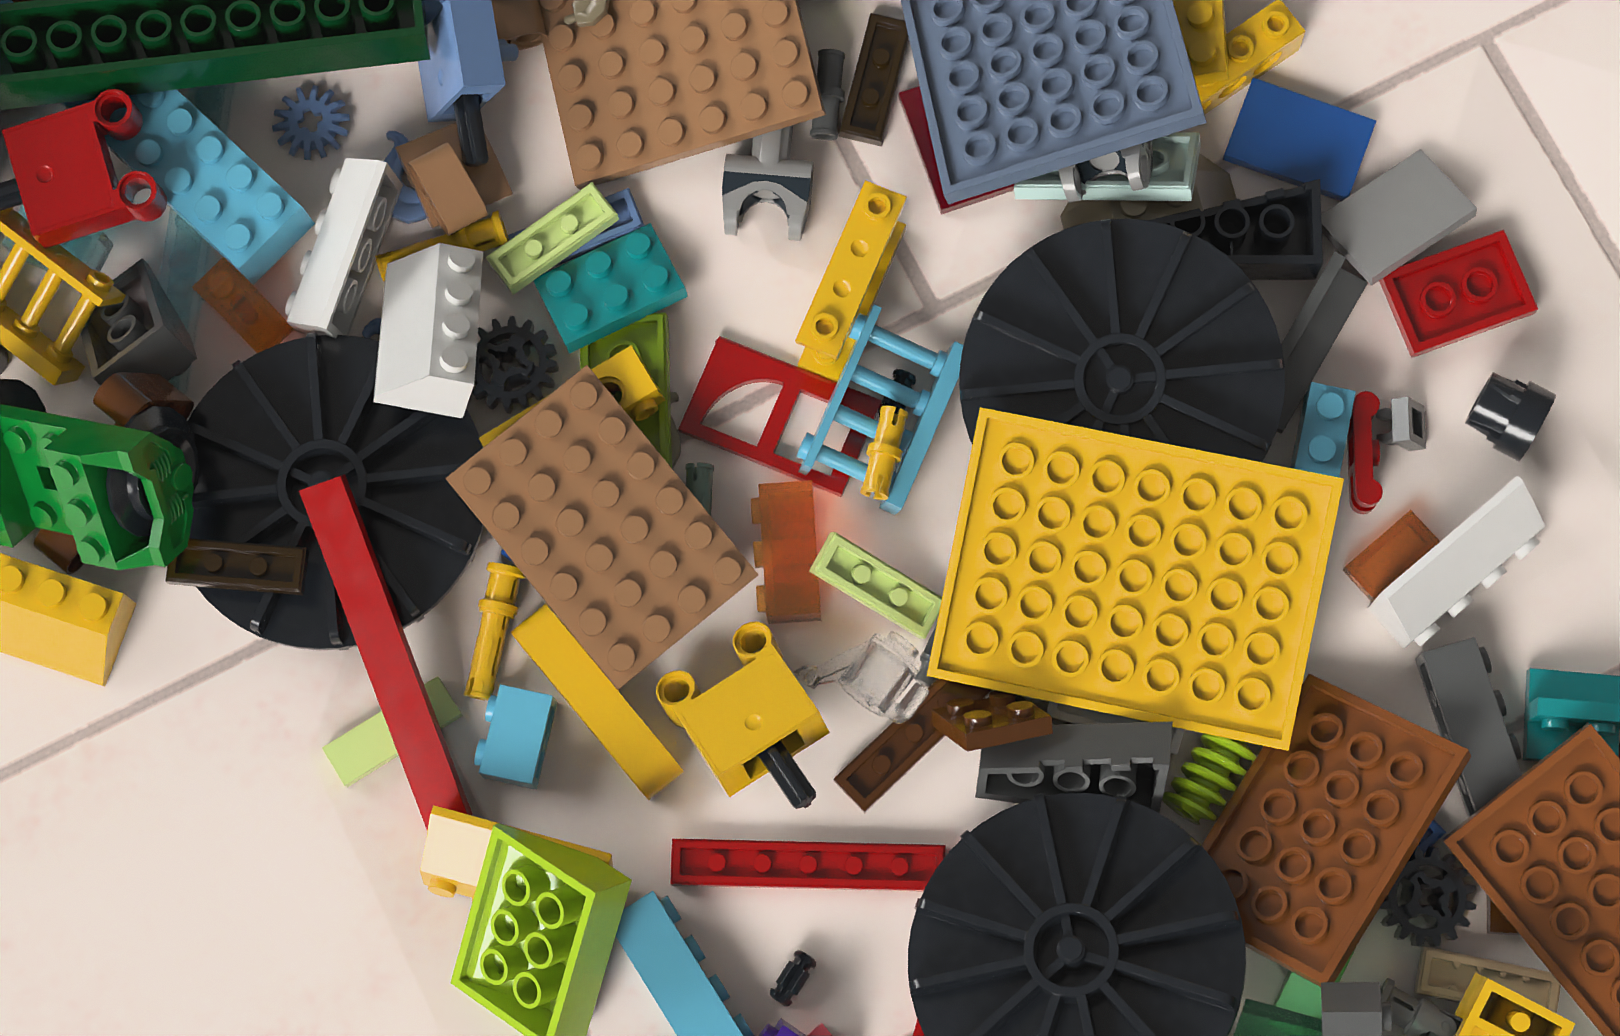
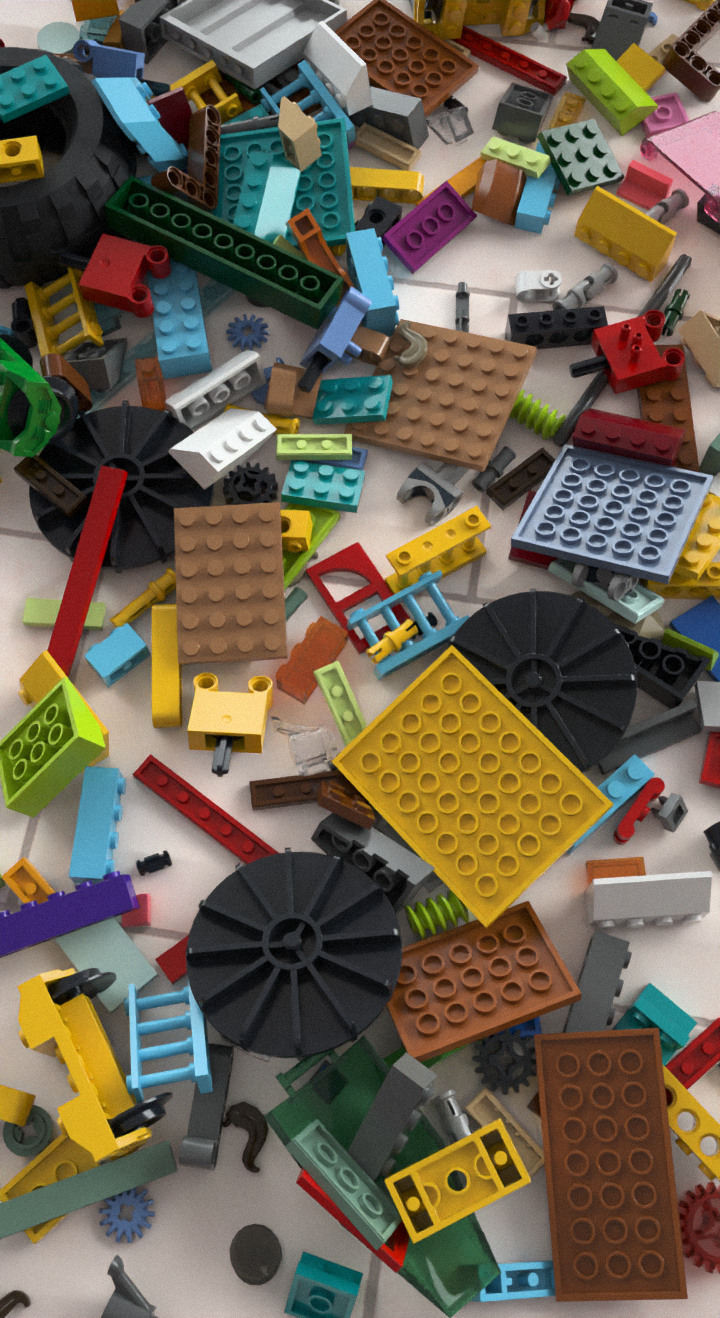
camera: 30 degrees right, 10 degrees down
(554, 127) = (352, 400): none -> teal plate
(1258, 179) = (694, 648): none -> lime slope

